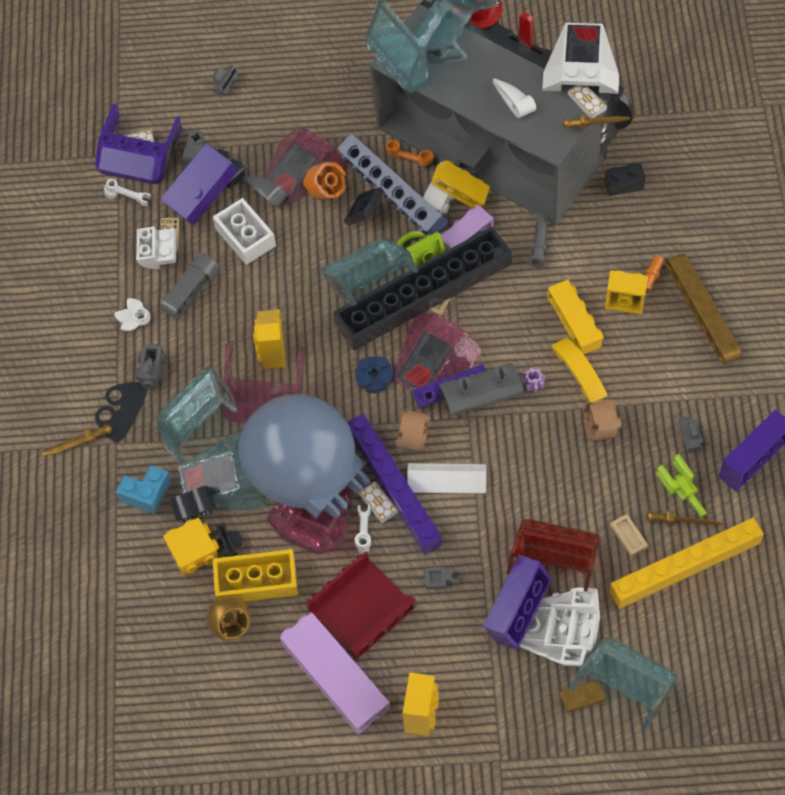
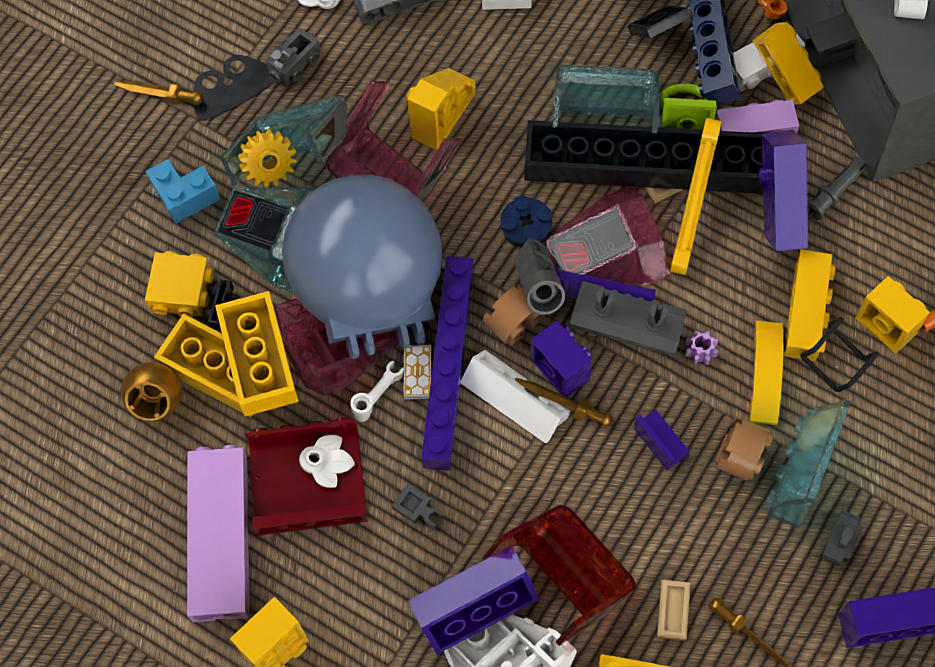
camera: 35 degrees right, 5 degrees up
(191, 433) = (273, 169): none -> yellow gear
(192, 504) = (215, 239): black brick -> none
(282, 548) = (256, 354): none -> yellow brick
(367, 586) = (330, 460): none -> white plate
(419, 400) = (539, 278): none -> dark grey beam
(452, 256) = (695, 196): none -> yellow piece
(460, 437) = (561, 358): none -> dark purple brick
(491, 459) = (581, 408): none -> pearl gold sword
(517, 258) = (784, 190): none -> dark purple brick
(549, 447) = (660, 439): none -> dark purple panel
(601, 322) = (833, 325): none -> black piece
(643, 403) = (806, 462): none -> clear light blue slope
(681, 484) = (783, 594): lime plant -> none

